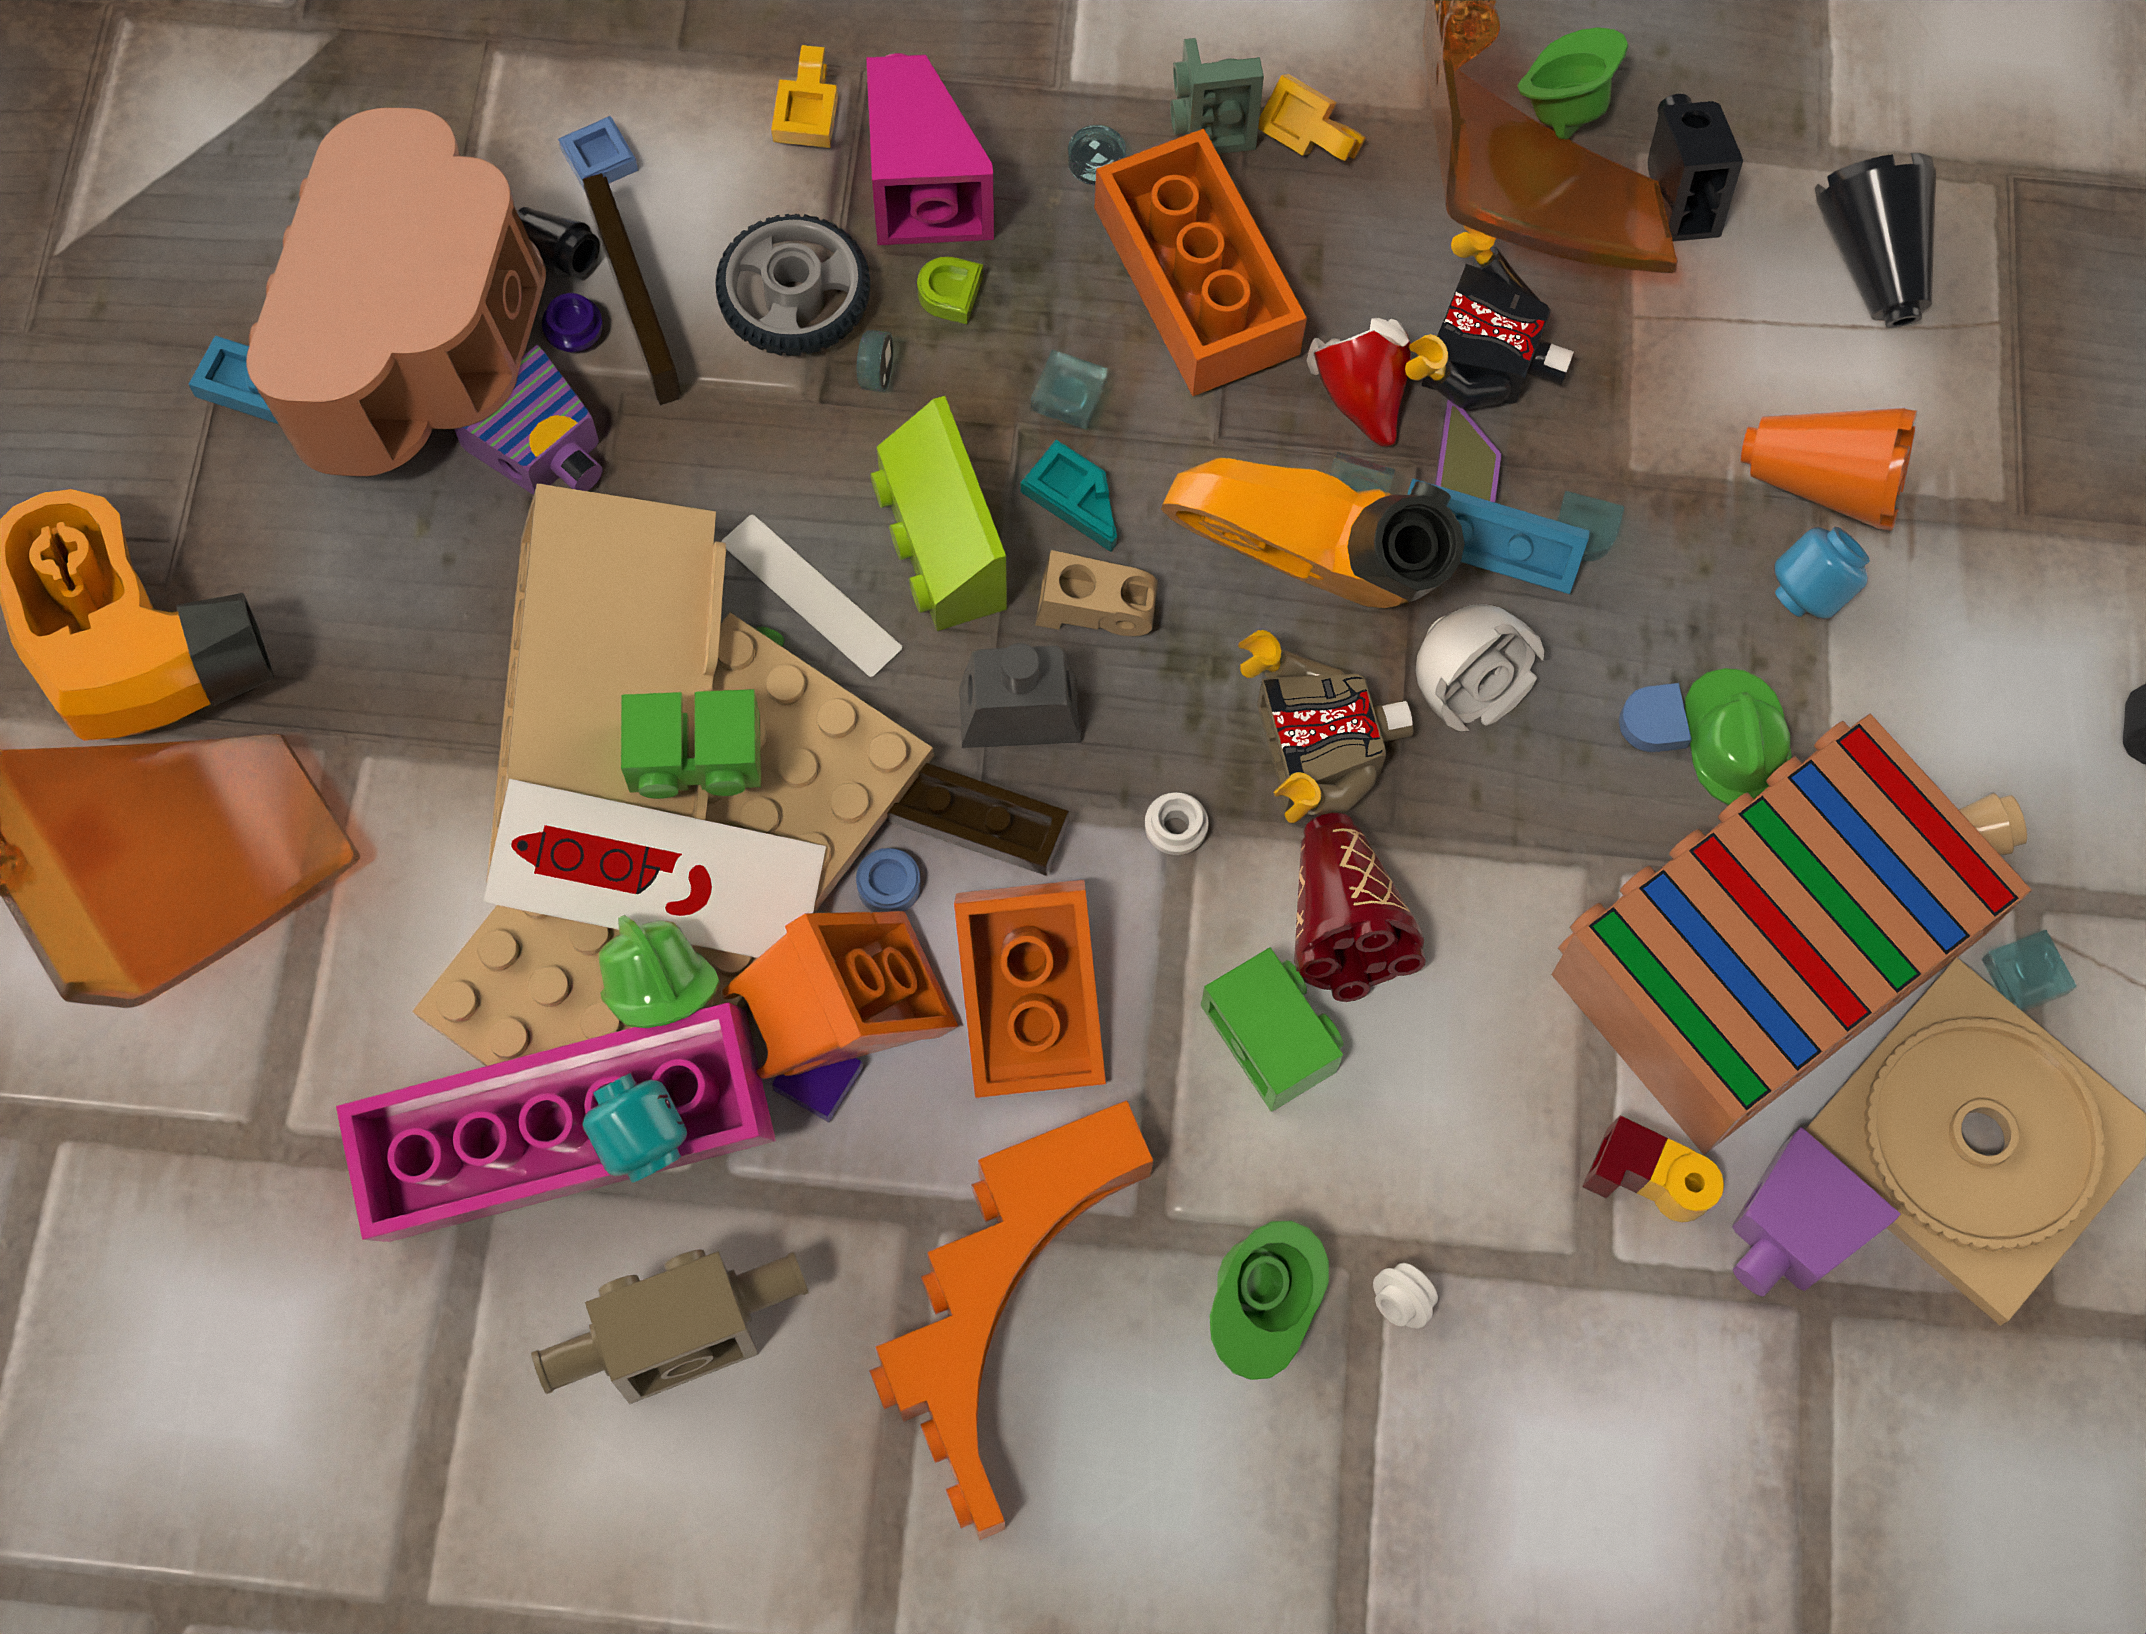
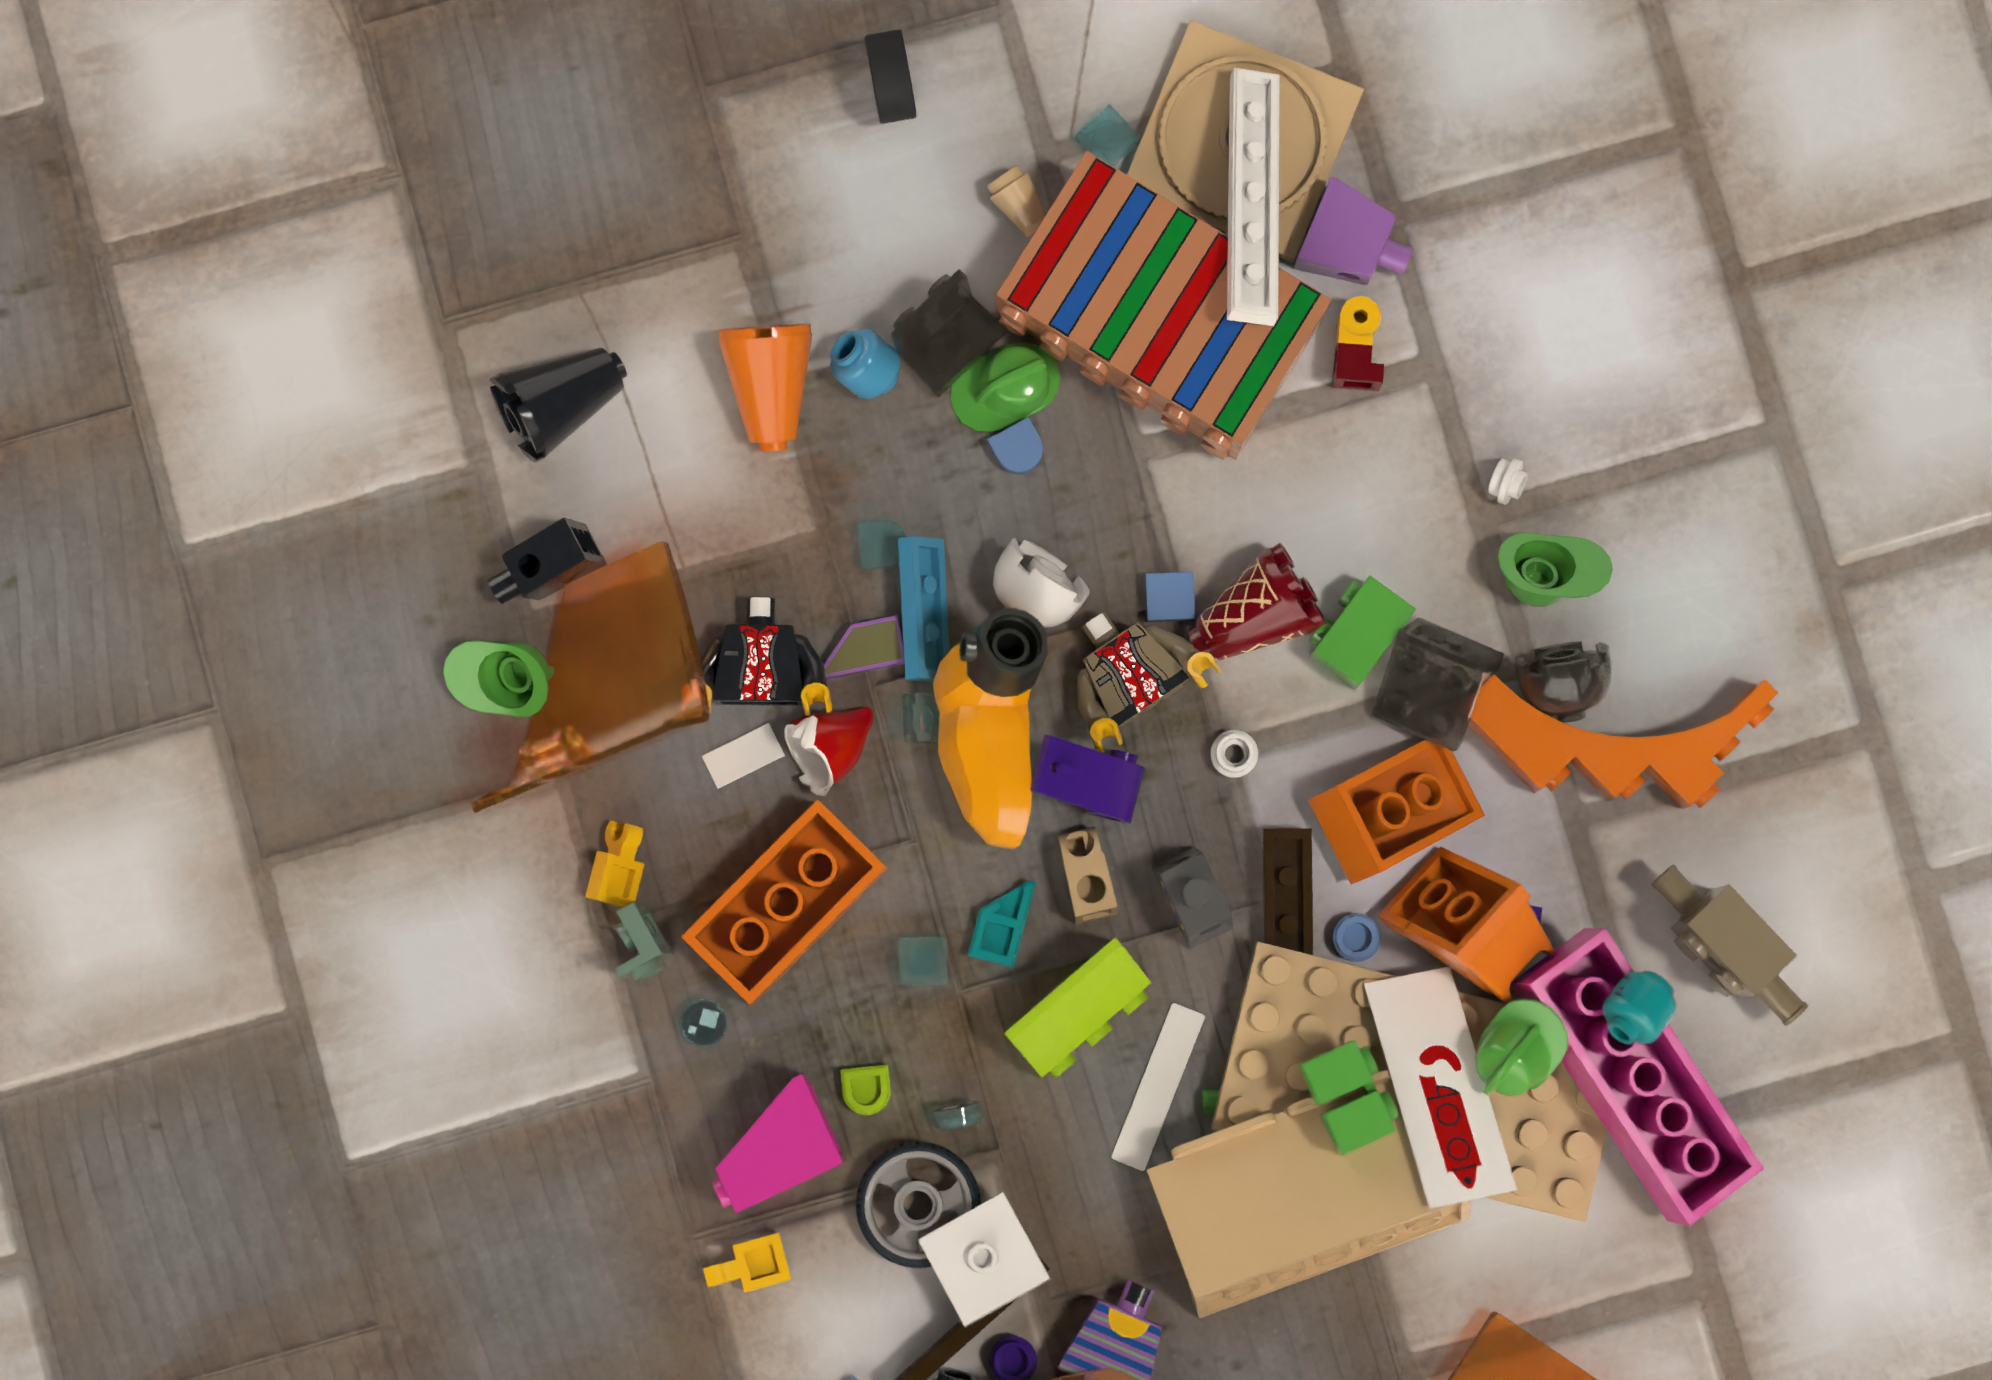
camera: 110 degrees left, 15 degrees up
(696, 309) = (984, 1259): none -> white plate
(1110, 1256) = (1565, 679): none -> clear smoke cylinder
(1180, 1086) = (1434, 682): none -> clear smoke bracket
(1210, 616) = (1088, 778): none -> dark purple door
(1387, 293) = (743, 755): none -> white sticker
(1403, 824) = (1170, 596): none -> medium blue tile
(1835, 668) = (945, 333): none -> clear smoke bracket
(1906, 1081) = (1253, 197): none -> white tile

